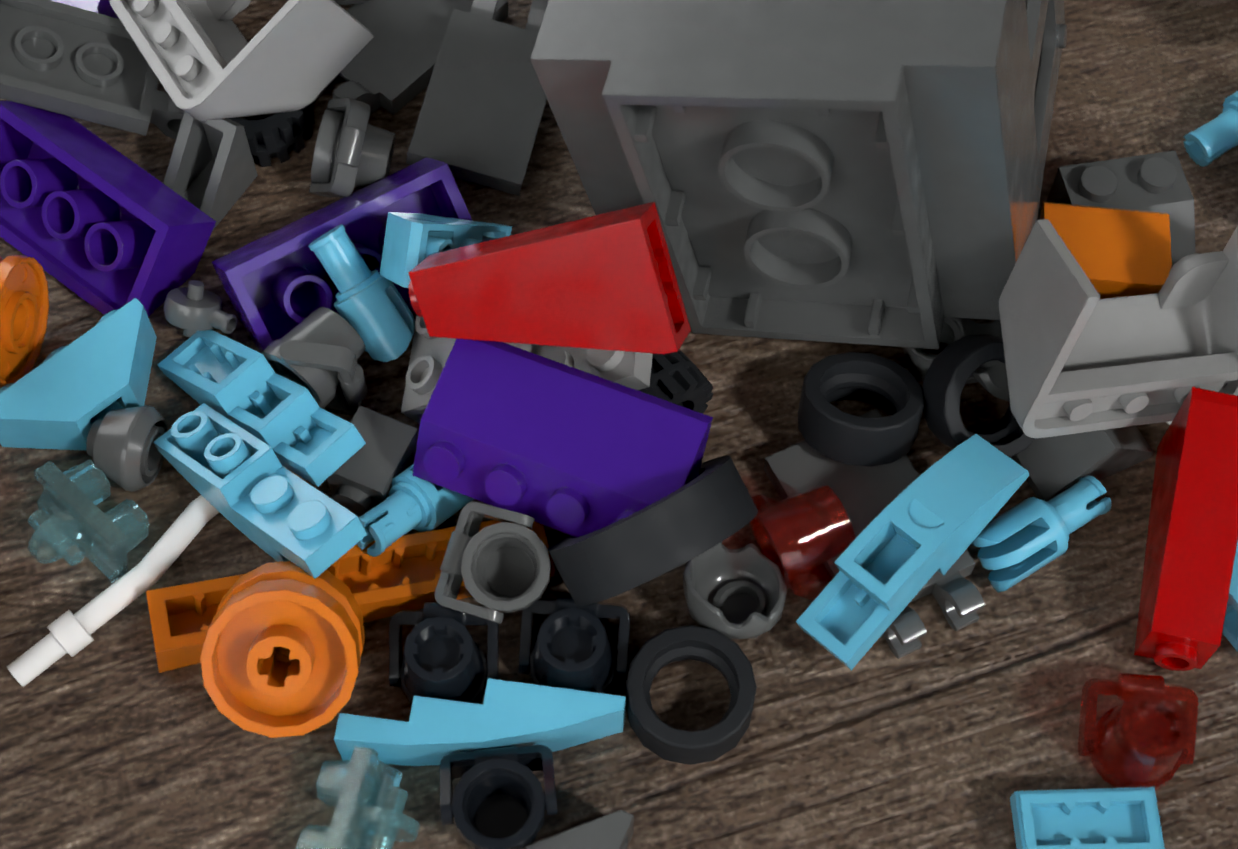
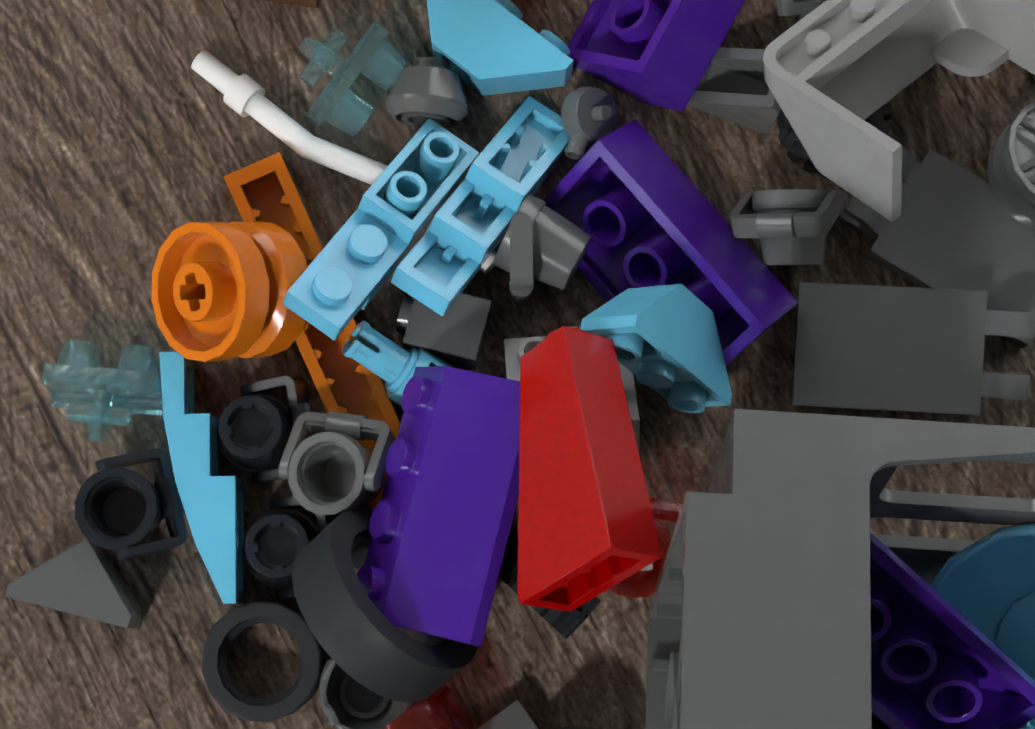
camera: 80 degrees right, 20 degrees up
(365, 297) = (610, 271): medium azure arm -> none

